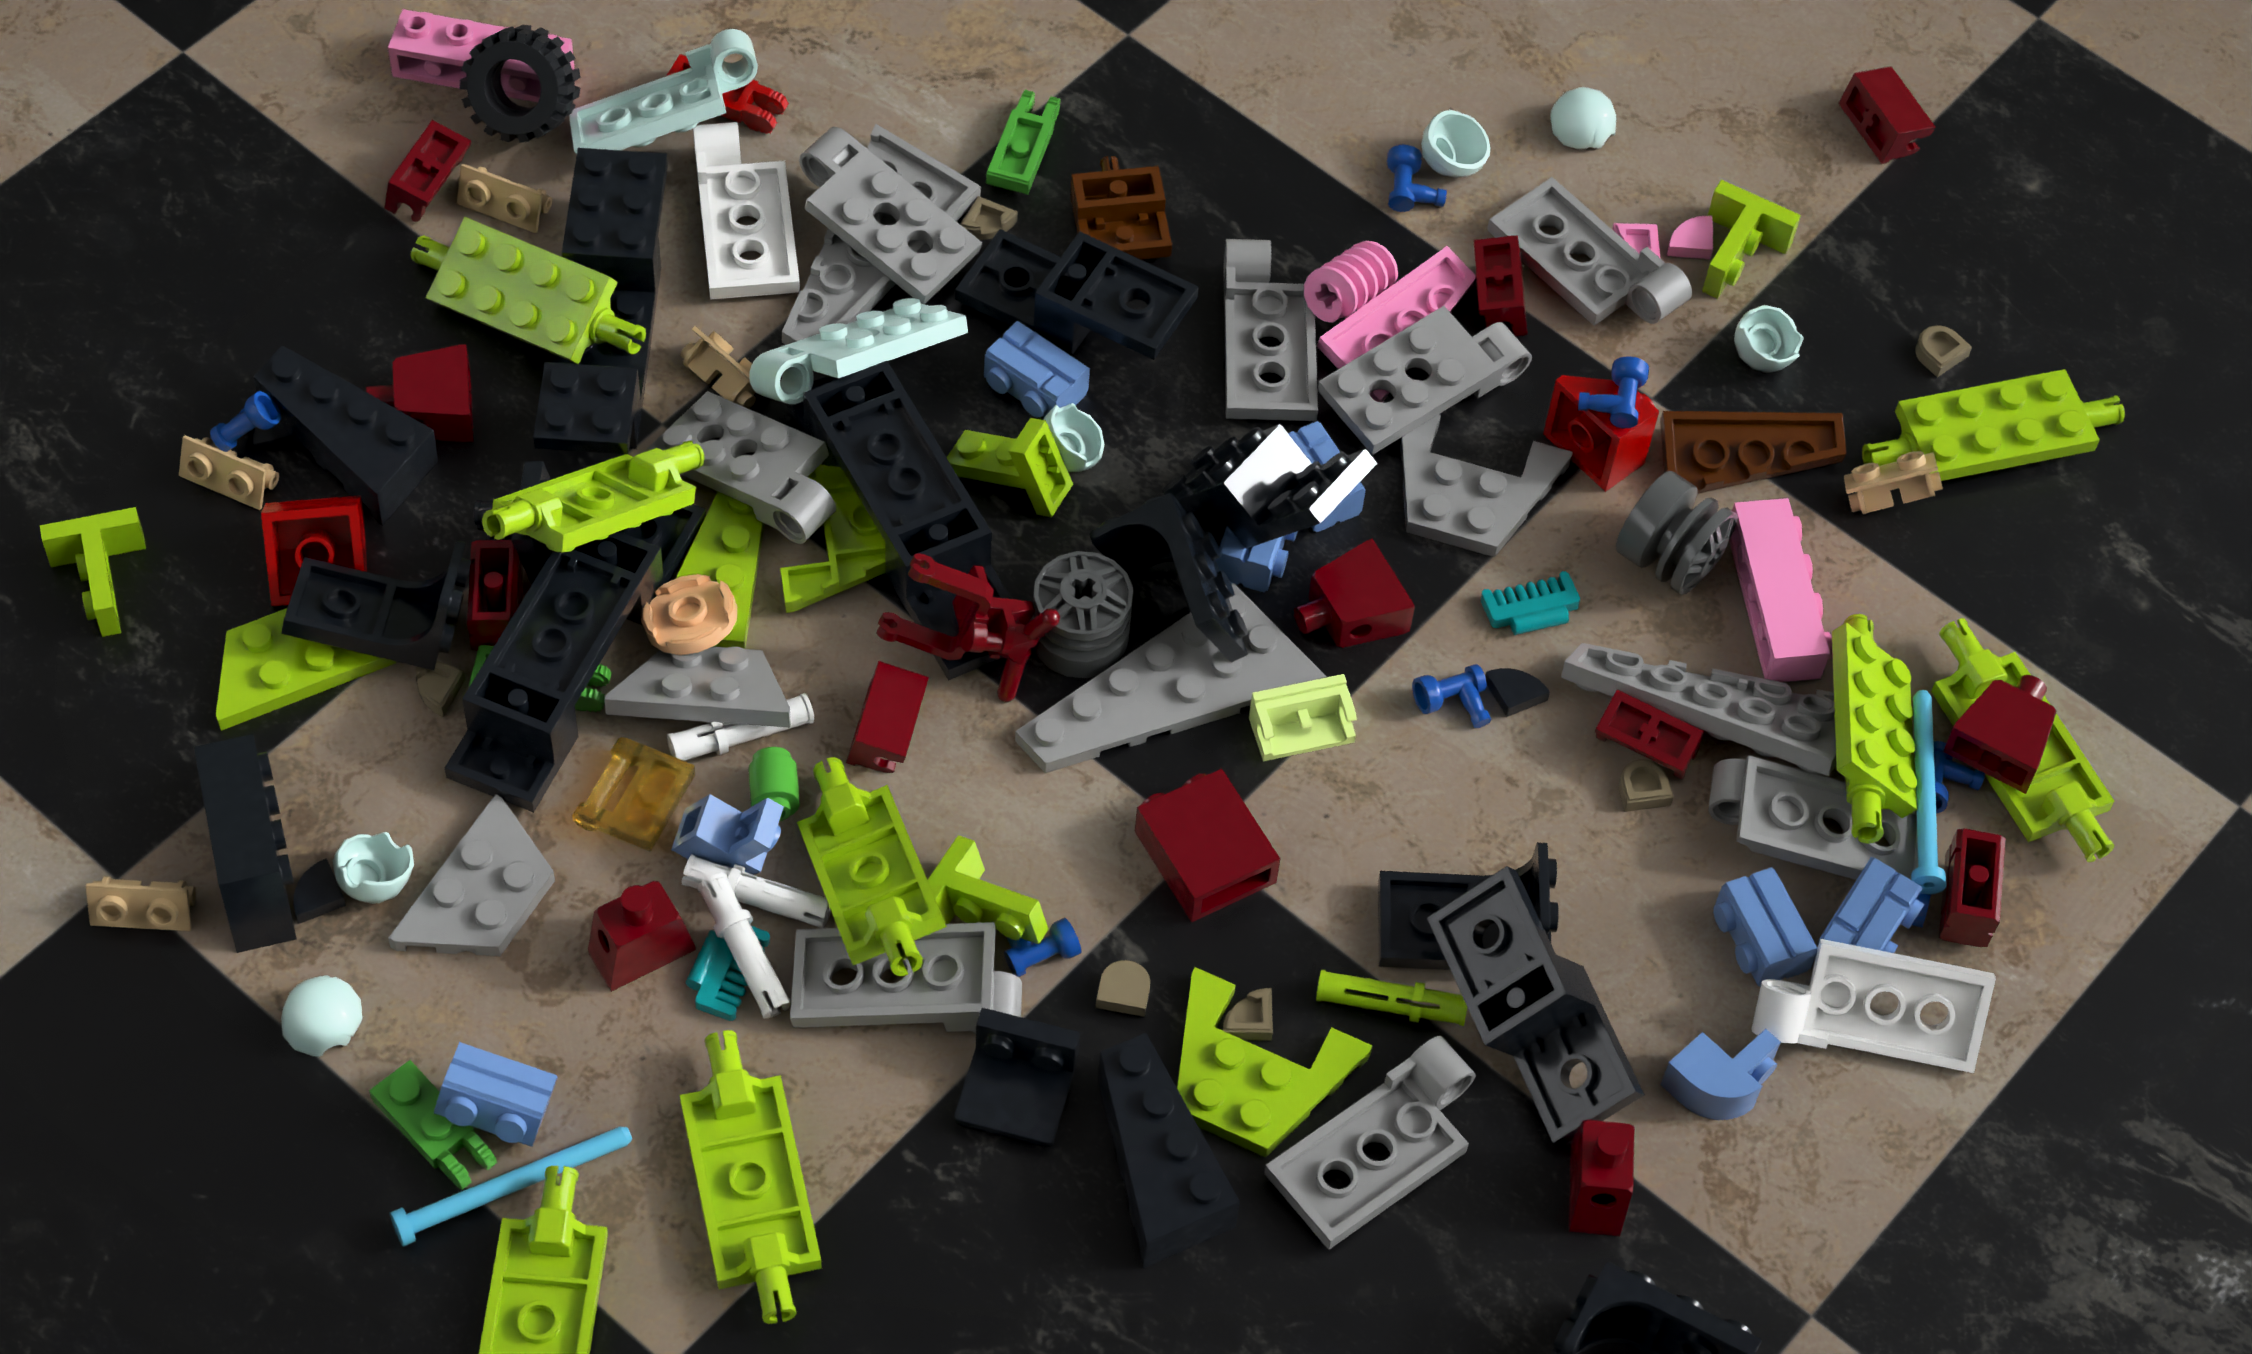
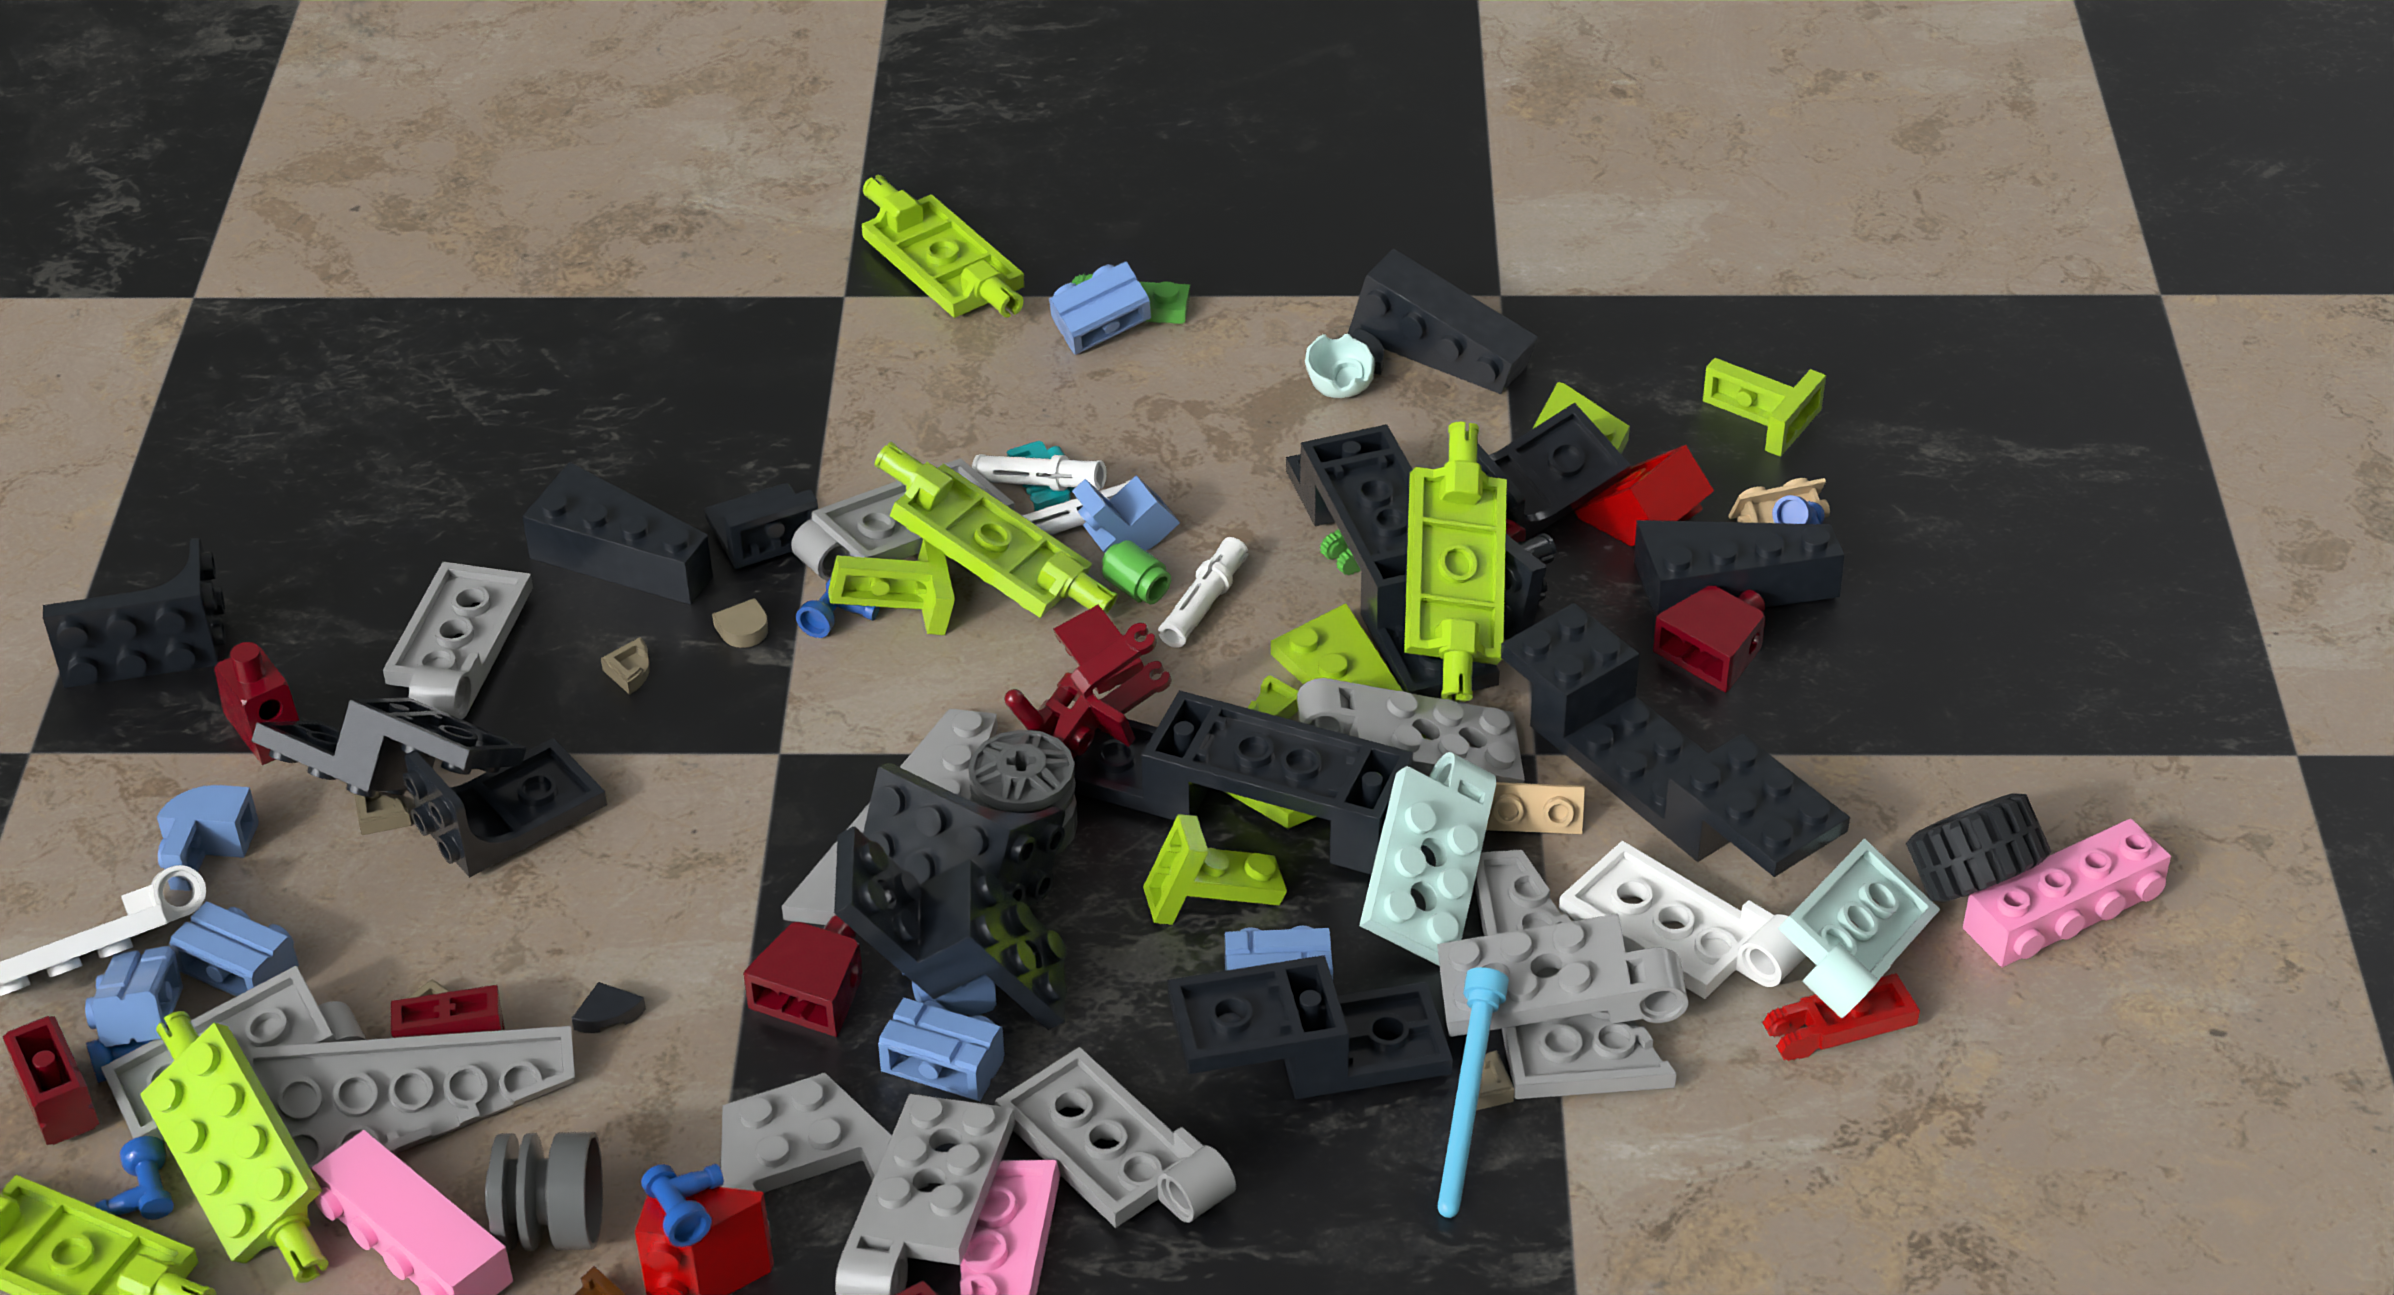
camera: 145 degrees right, 15 degrees down
(138, 906) = (1473, 270): tan hinge -> none
(320, 1015) = (1271, 299): light aqua hair -> none
(425, 169) = (1960, 763): dark red hinge -> none
(480, 890) = (1259, 412): light grey wing -> none
(486, 1192) = (1082, 250): medium azure bar -> none
(501, 198) = (1901, 798): tan hinge -> none
(525, 291) = (1763, 715): lime plate -> none
(637, 935) = (1120, 414): dark red torso -> none
(646, 801) = (1215, 517): clear yellow plate -> none
(689, 615) = (1321, 609): light nougat tile -> none
(703, 686) = (1255, 587): light grey wing -> none
(749, 1180) = (888, 378): lime plate -> none
(955, 210) = (1484, 993): none -> medium azure piece
(1022, 145) = (1535, 1168): bright green hinge -> none
(1076, 437) = (1183, 926): light aqua hair -> none
(1123, 208) = (1368, 1158): reddish brown plate -> none
(1206, 844) = (765, 729): dark red brick -> none
(1244, 1088) = (592, 623): lime wing -> none
(1302, 717) = (777, 867): yellowish green hinge -> none
(1333, 986) = (547, 721): lime pin -> none
(1350, 281) = (1071, 1226): bright pink piece -> none
(1431, 693) = (679, 951): blue piece -> none
(1532, 613) = (644, 1084): teal piece -> none
(1928, 873) = (96, 1047): medium azure bar -> none
(2005, 731) = (87, 1209): dark red torso -> none

